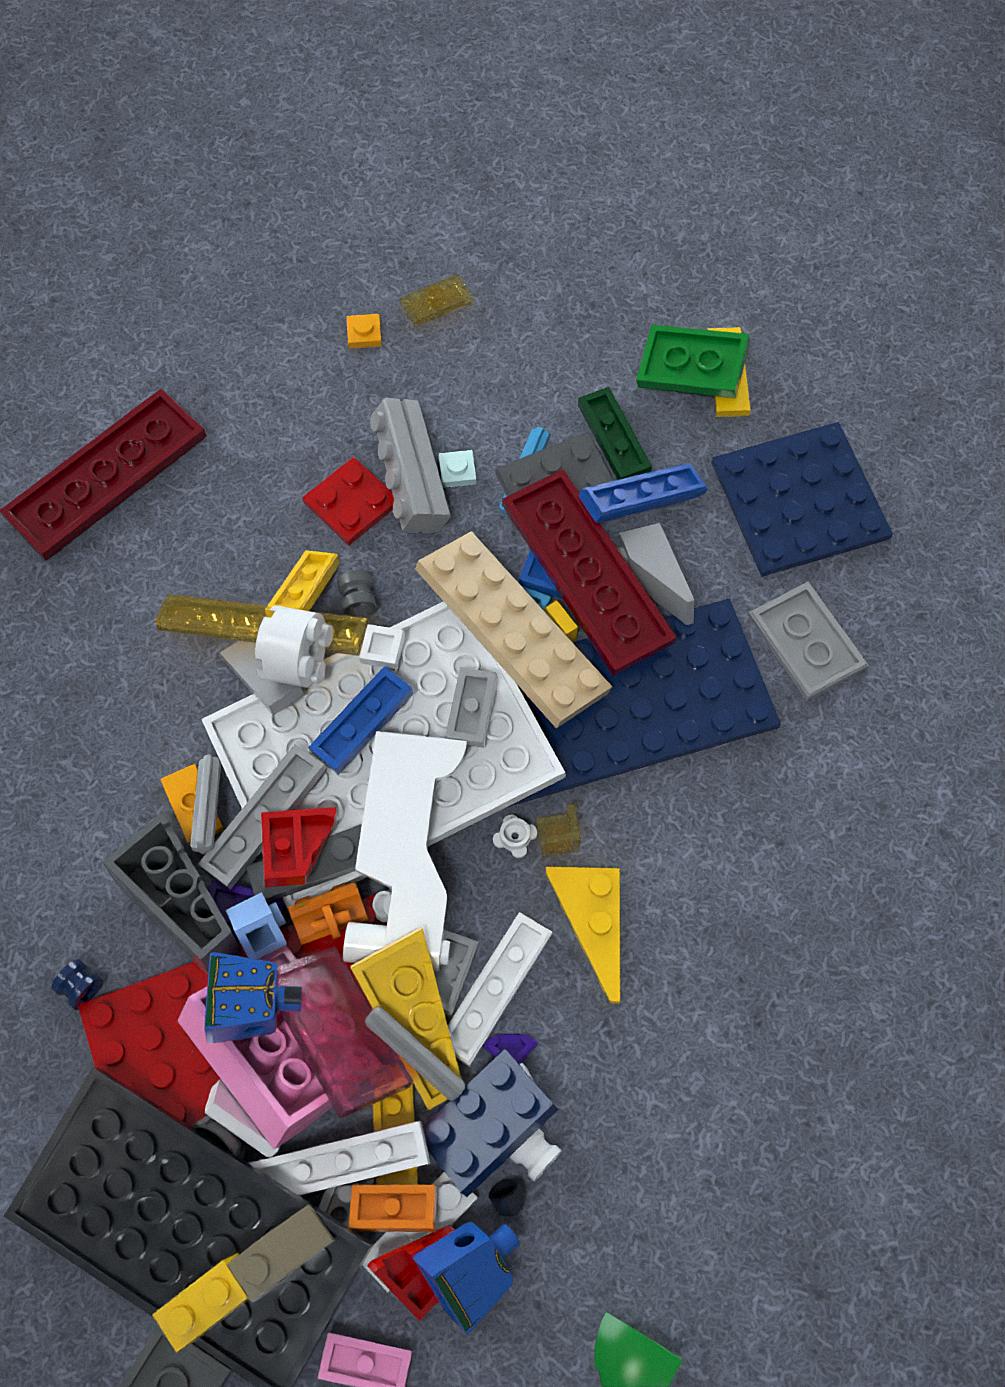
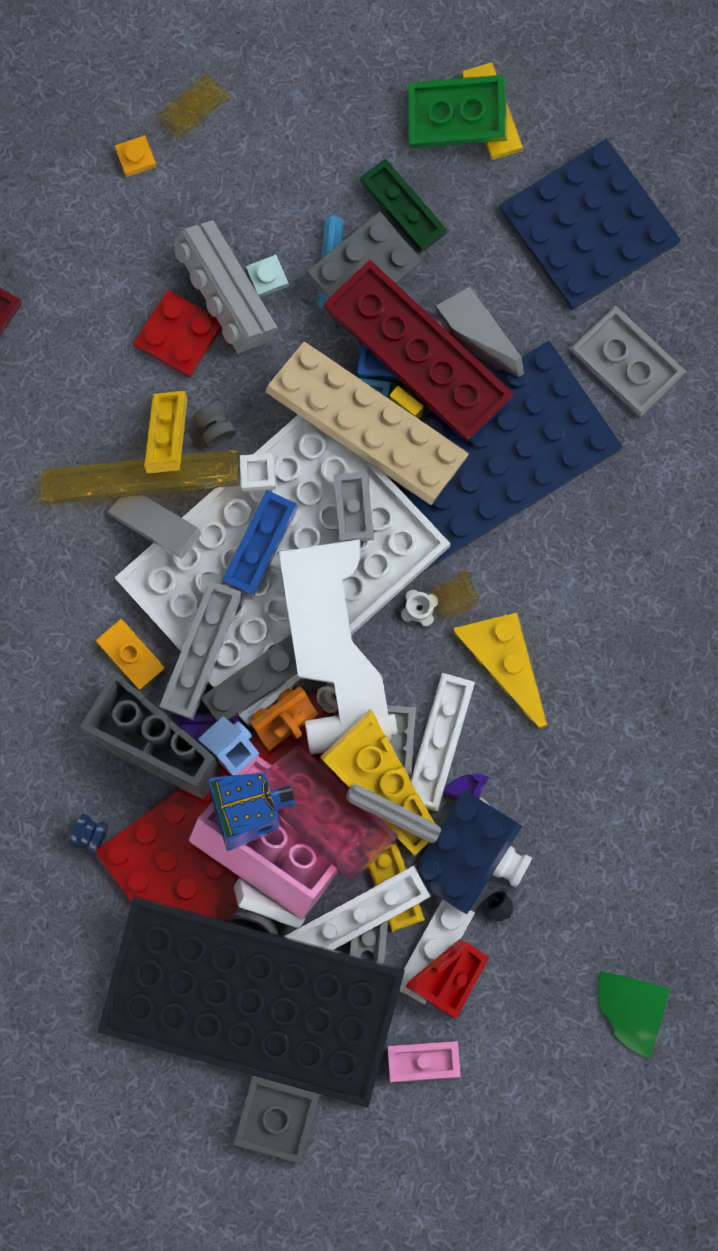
camera: 15 degrees left, 10 degrees up
(201, 1306) = (289, 1048): yellow brick -> none
(206, 804) = (146, 652): light grey axle -> none
(280, 1253) = (337, 994): dark tan slope -> none
(293, 646) = (184, 495): white brick -> none
(293, 843) = (238, 667): red wing -> none
(393, 1208) = (411, 938): orange plate -> none
(468, 1271) = (485, 970): blue torso -> none
(642, 492) = (447, 260): blue tile -> none

